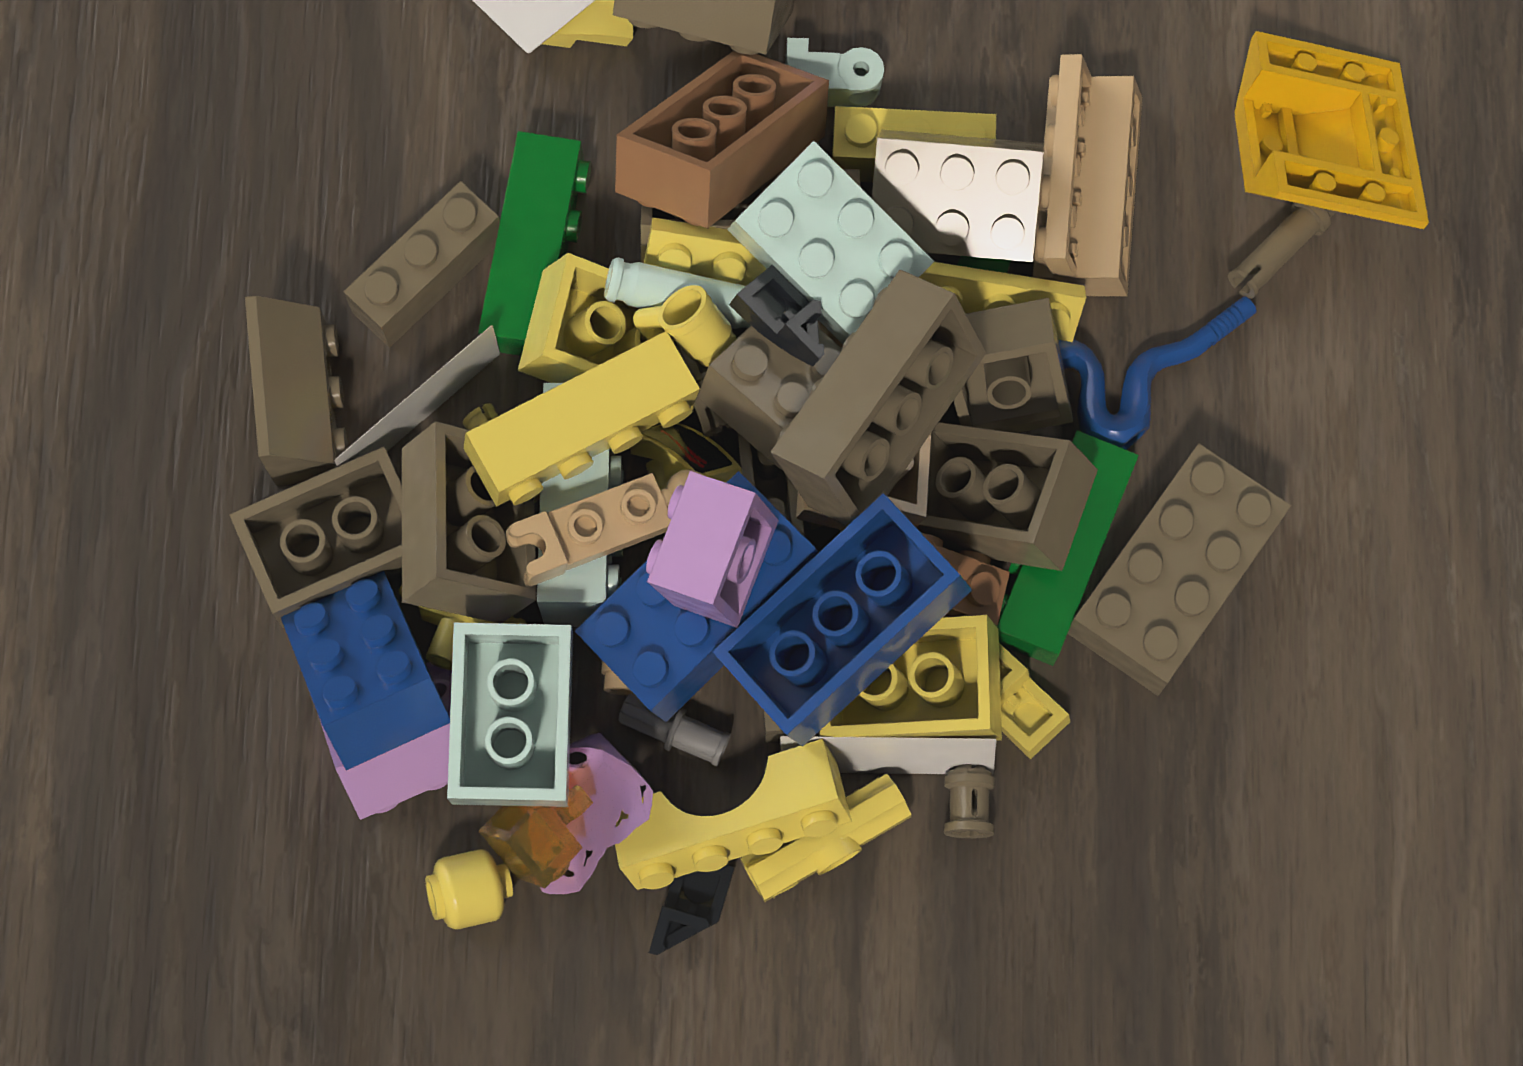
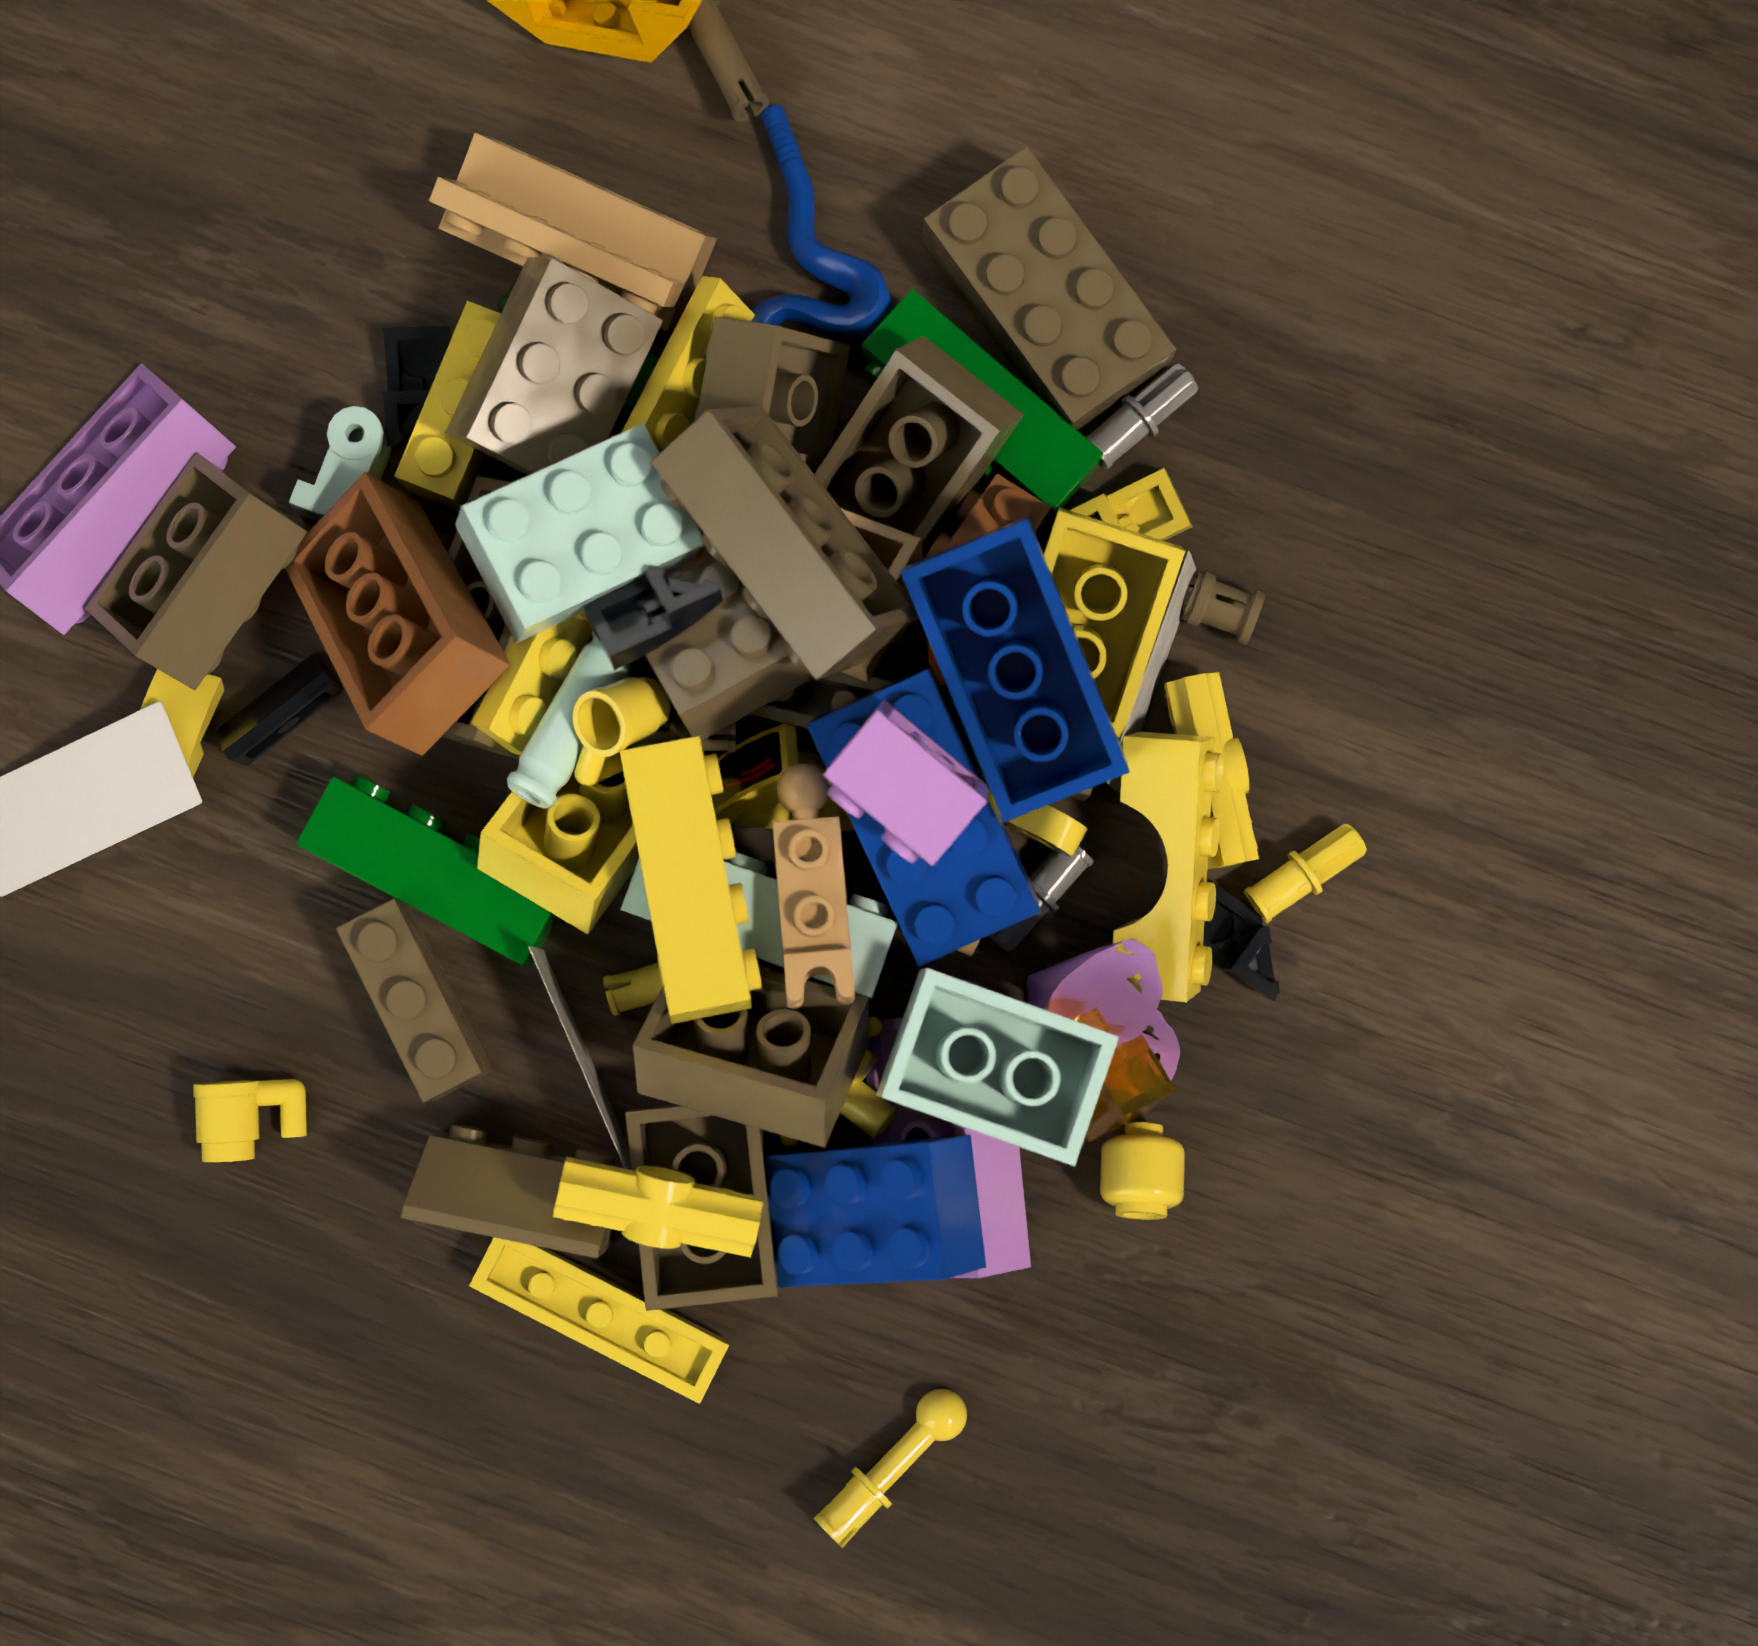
camera: 70 degrees left, 10 degrees up
(213, 793) = (939, 1417): none -> light yellow pin
(215, 490) = (601, 1315): none -> light yellow plate
(290, 157) = (230, 1115): none -> light yellow piece
(314, 489) = (658, 1207): none -> light yellow piece
(613, 85) = (278, 711): none -> black slope
(730, 710) = (1048, 828): none -> light yellow beam
(768, 947) = (1305, 872): none -> light yellow axle
(935, 93) = (411, 367): none -> black slope
(1107, 682) = (1143, 413): none -> light grey axle

